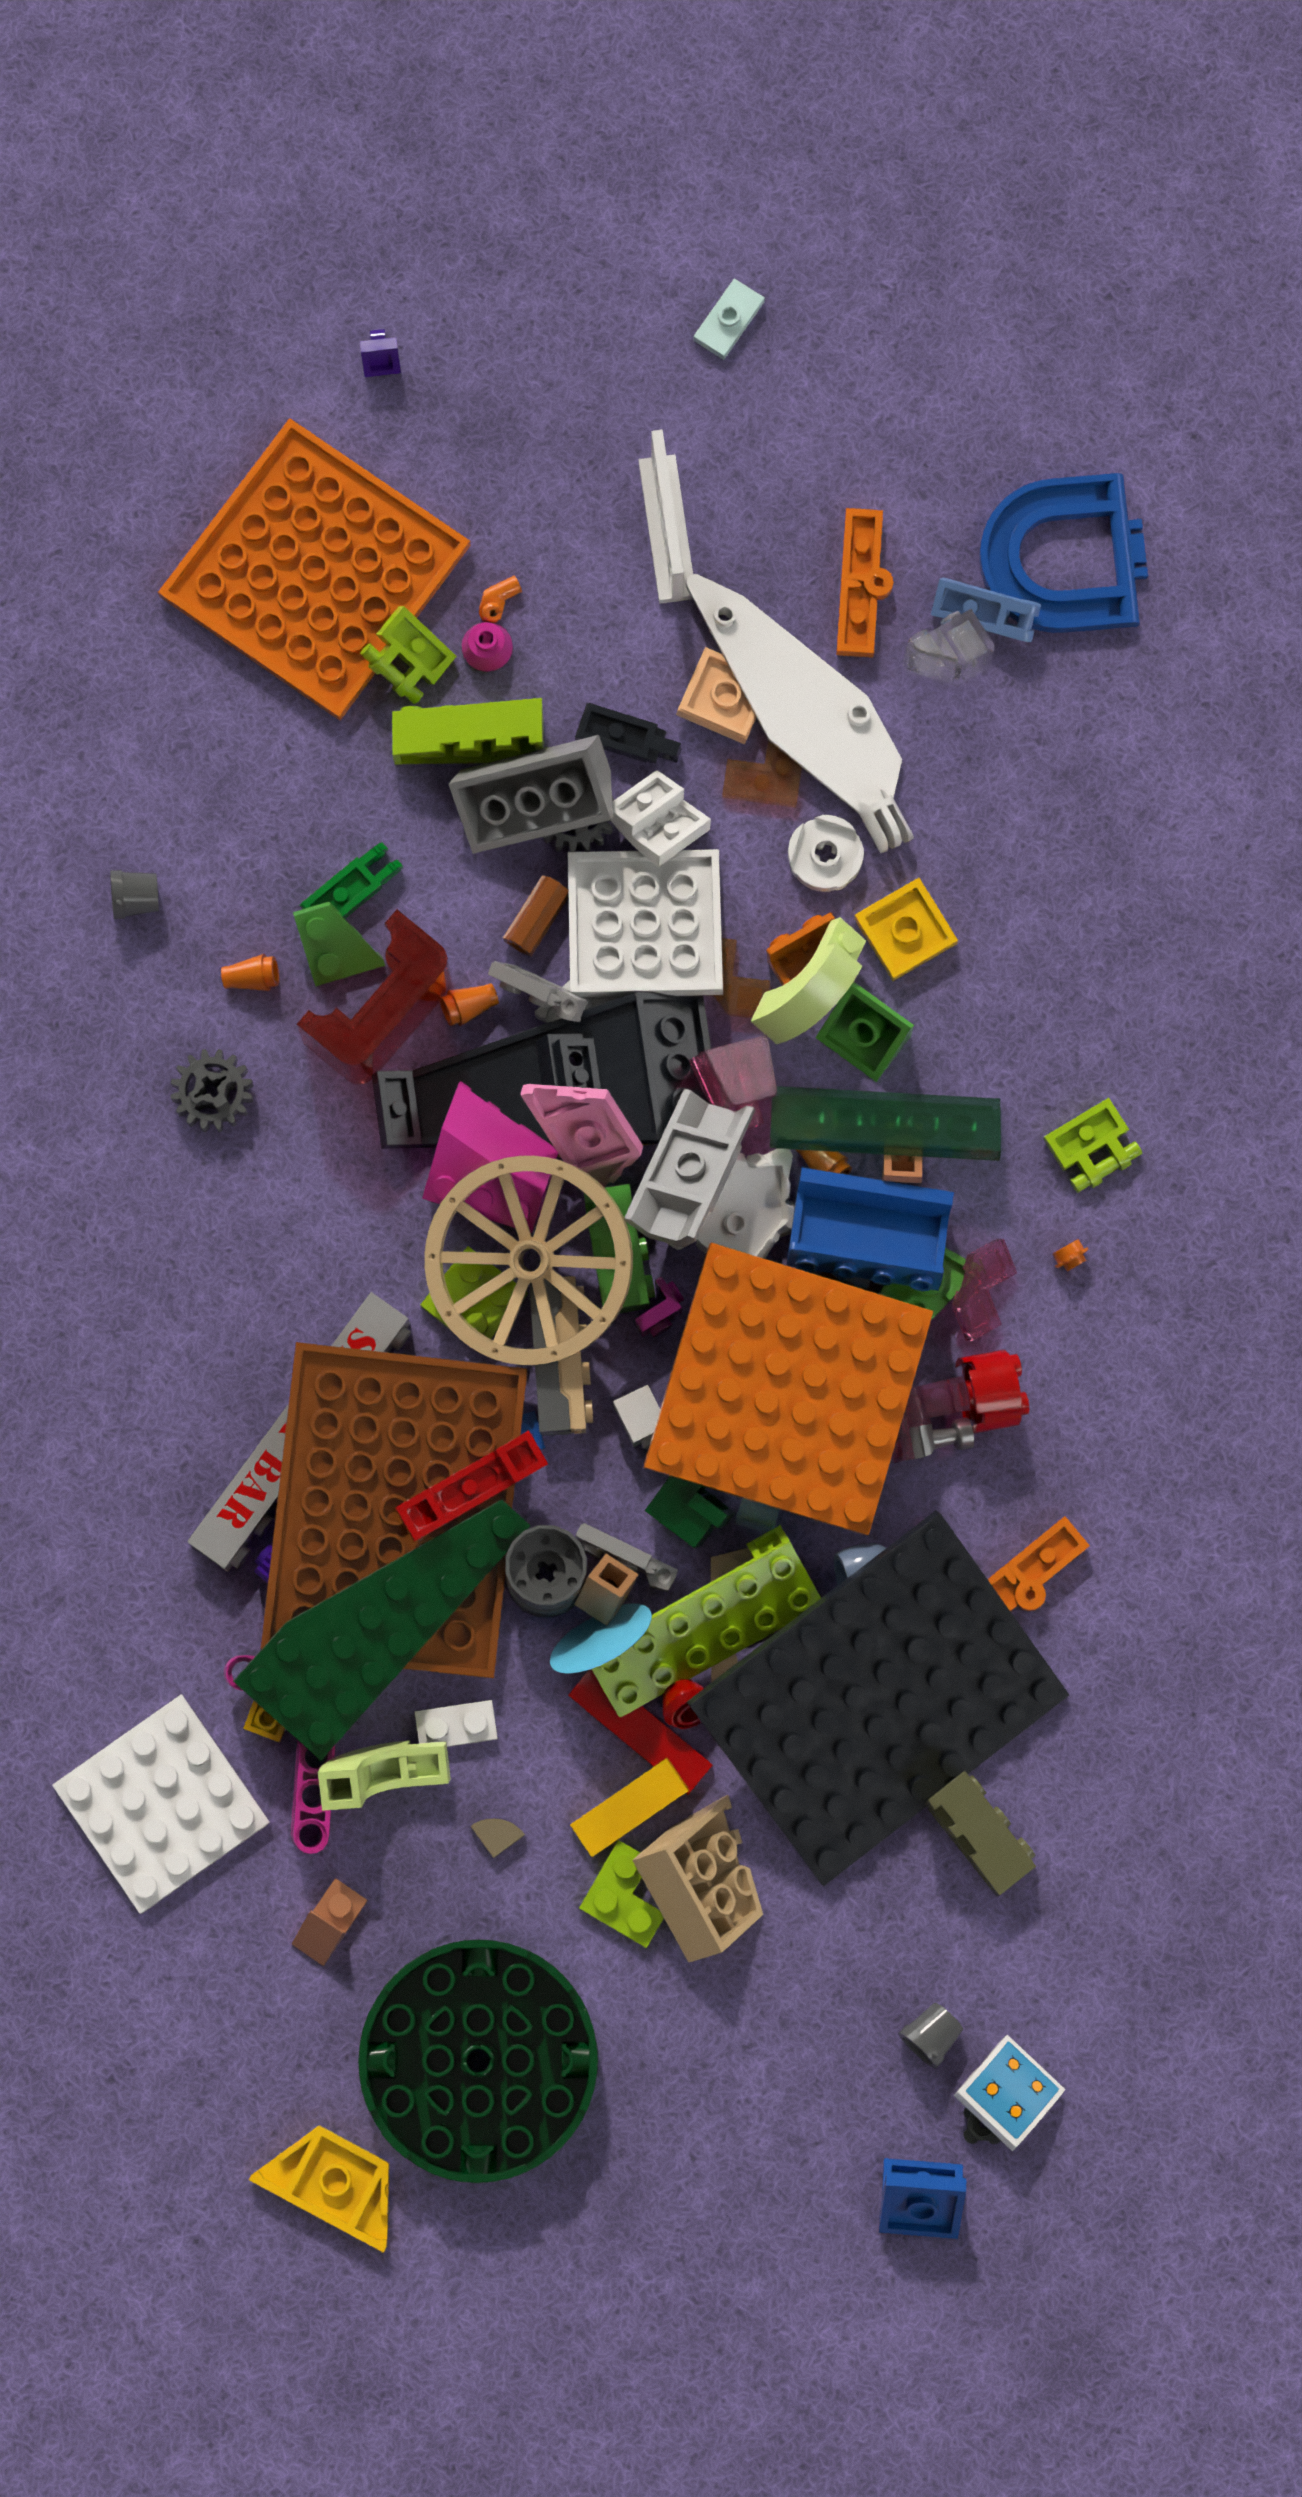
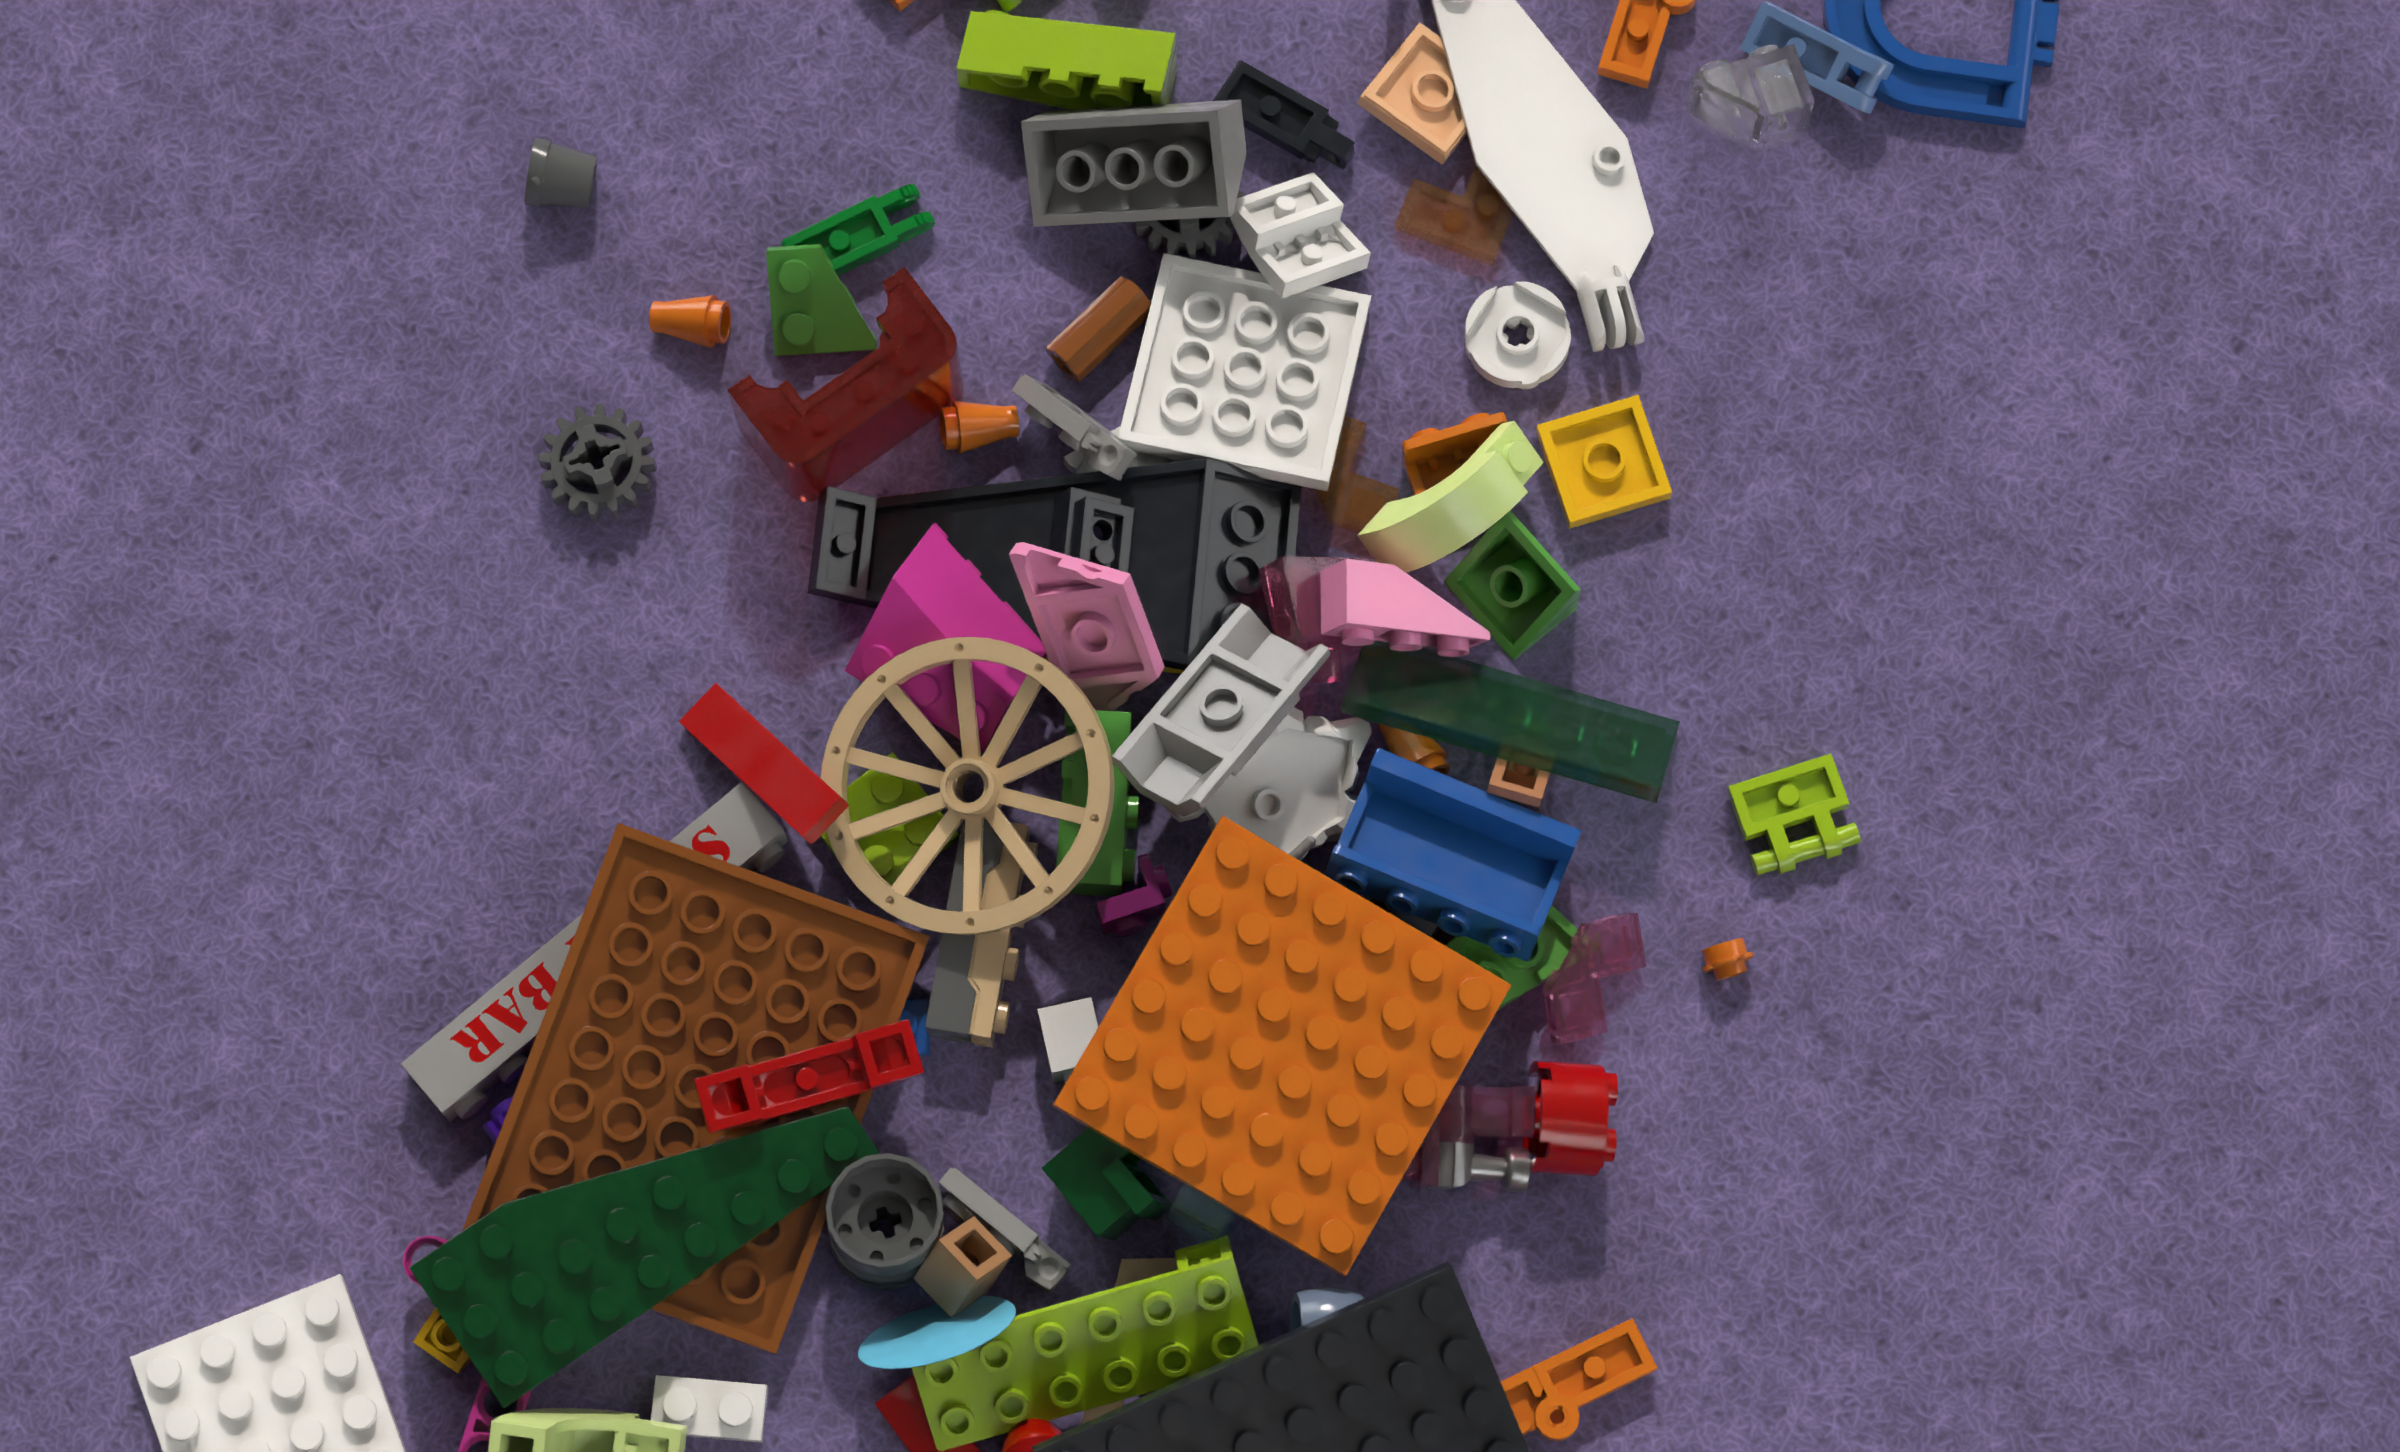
camera: 15 degrees right, 5 degrees down
(383, 1276) = (764, 763): none -> red tile
(783, 1066) = (1385, 604): none -> bright pink slope

